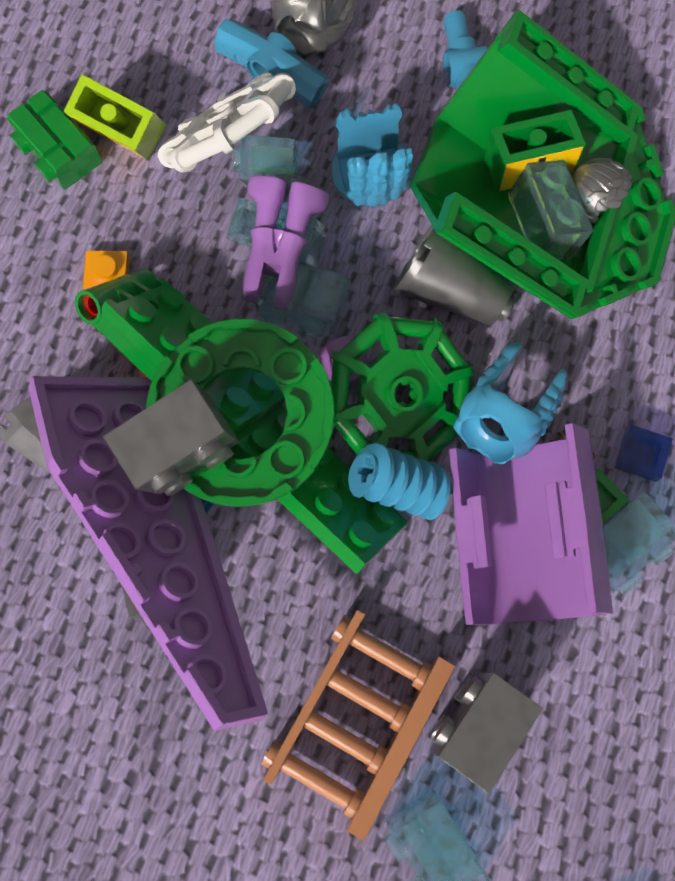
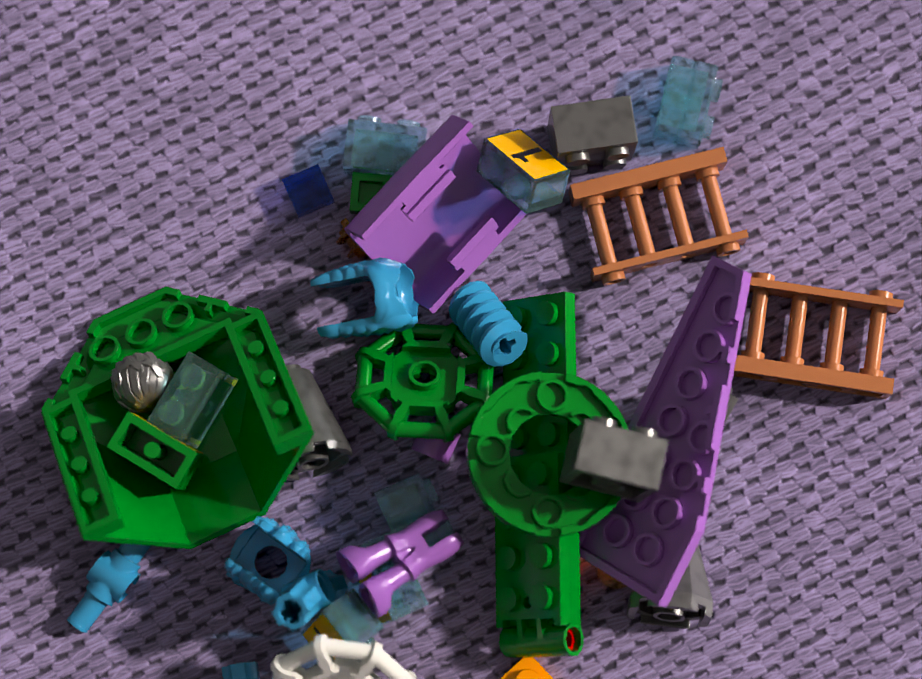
camera: 135 degrees left, 5 degrees up
(83, 735) = (831, 373): none -> nougat fence
(317, 141) = (307, 596): none -> dark azure piece
(504, 634) = (523, 171): none -> clear light blue brick

